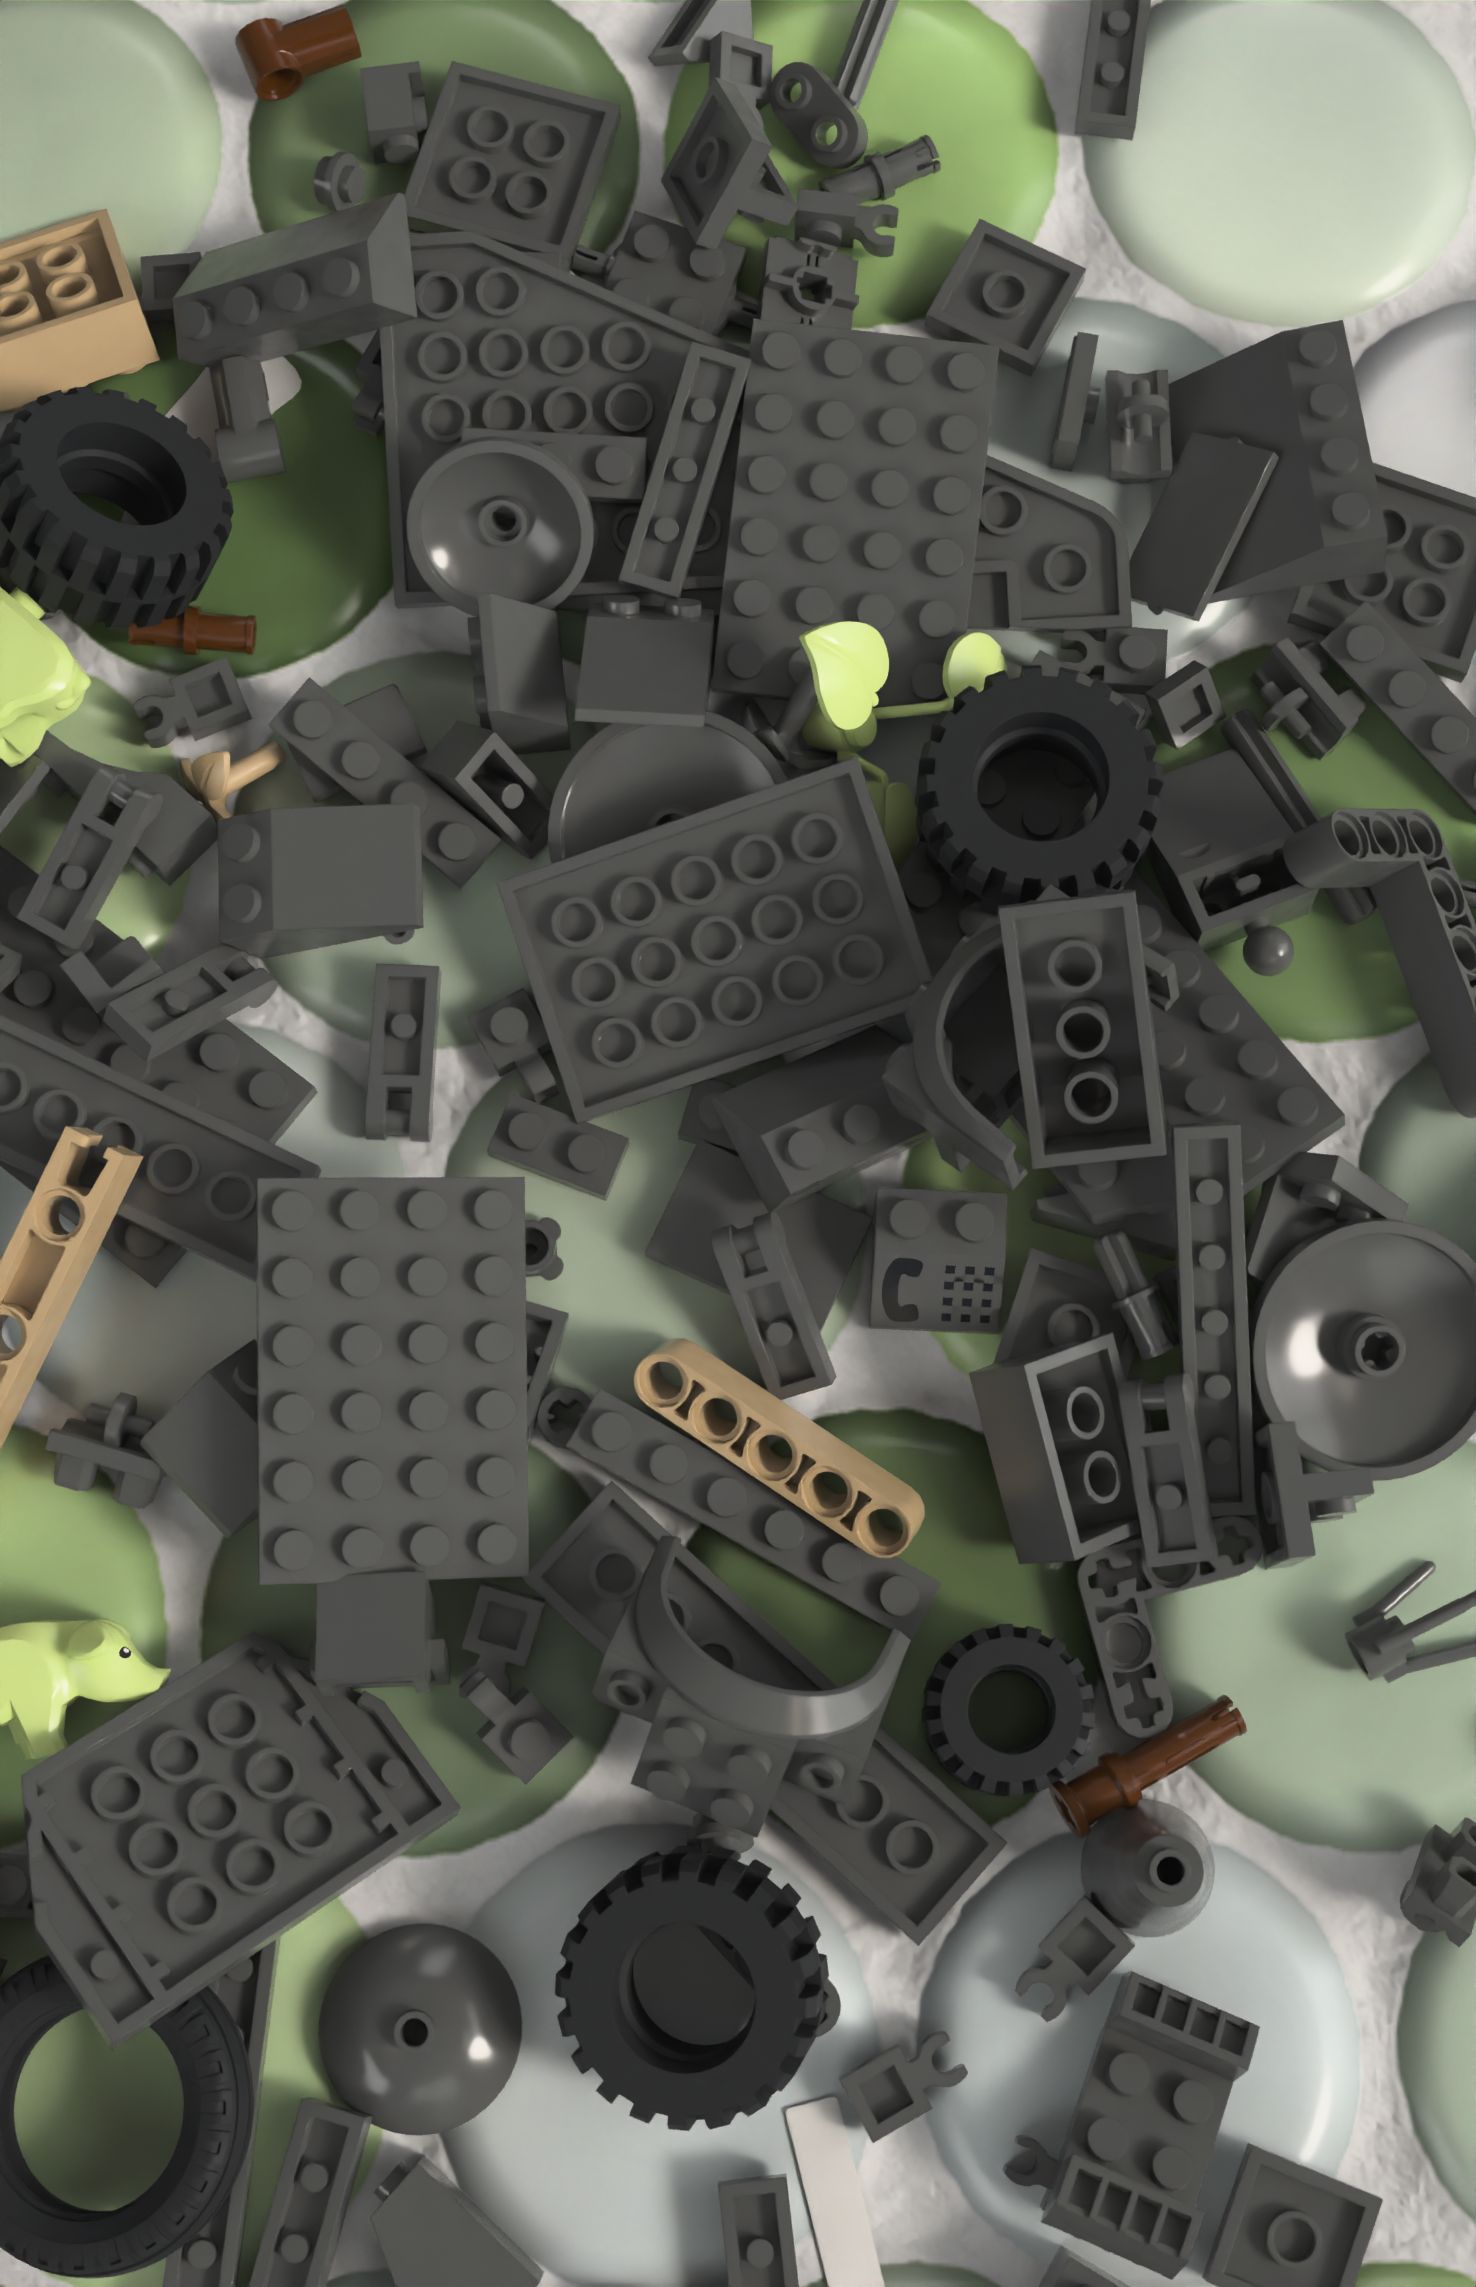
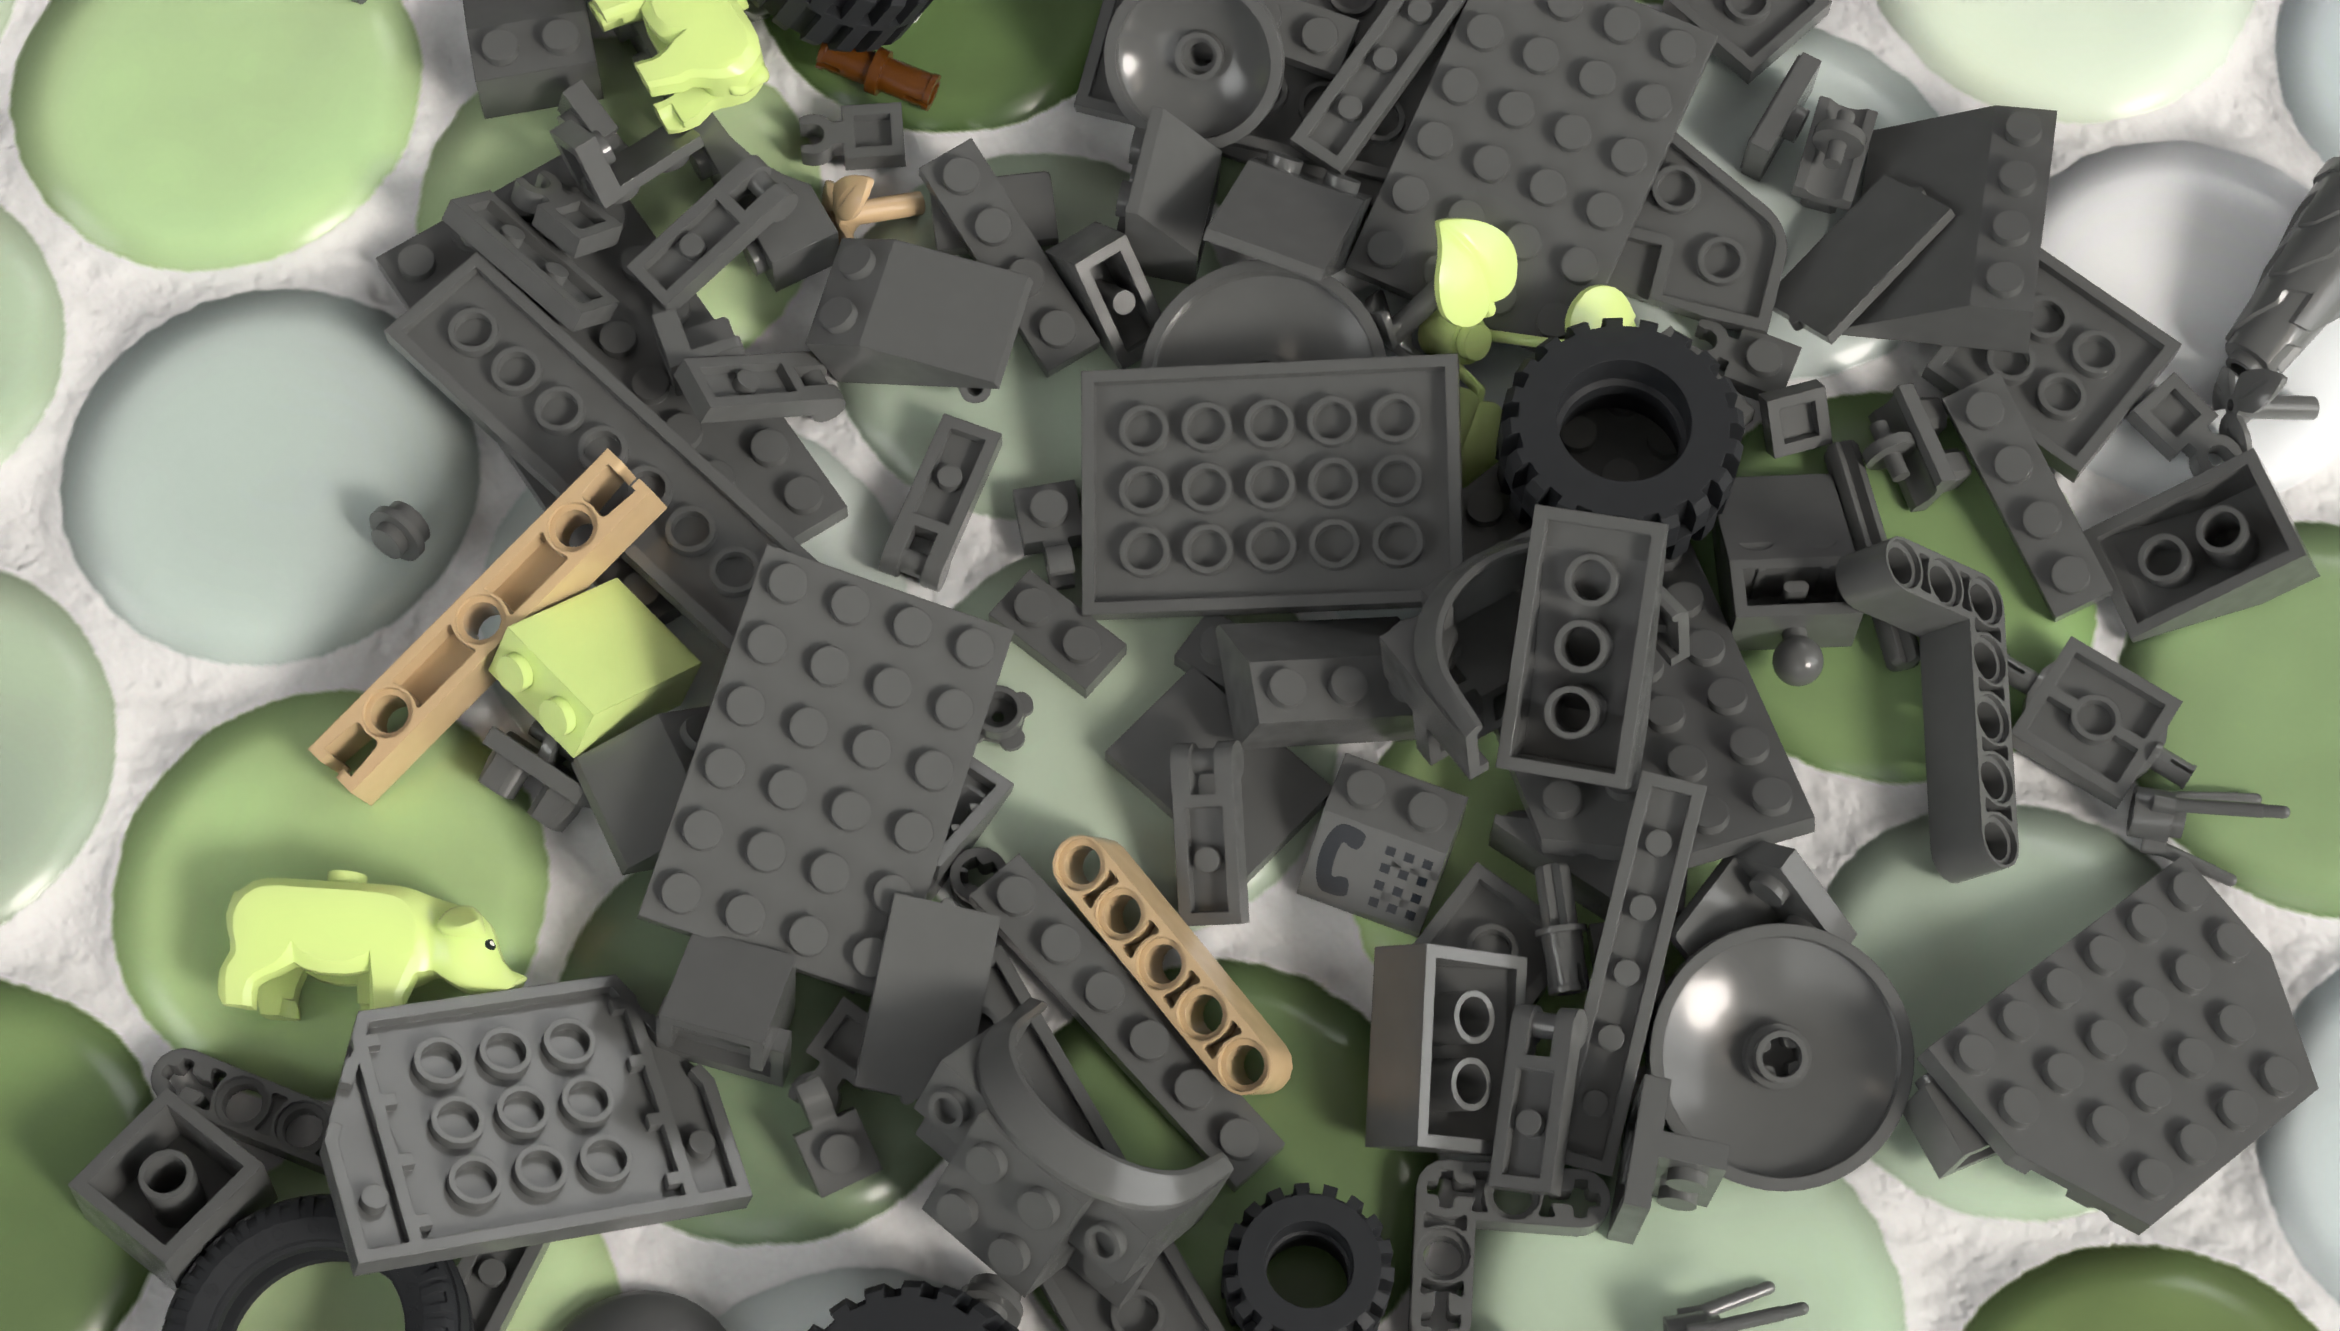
camera: 15 degrees right, 10 degrees down
(127, 1338) = (594, 666): none -> yellowish green brick
(561, 1565) = (924, 993): none -> dark grey piece

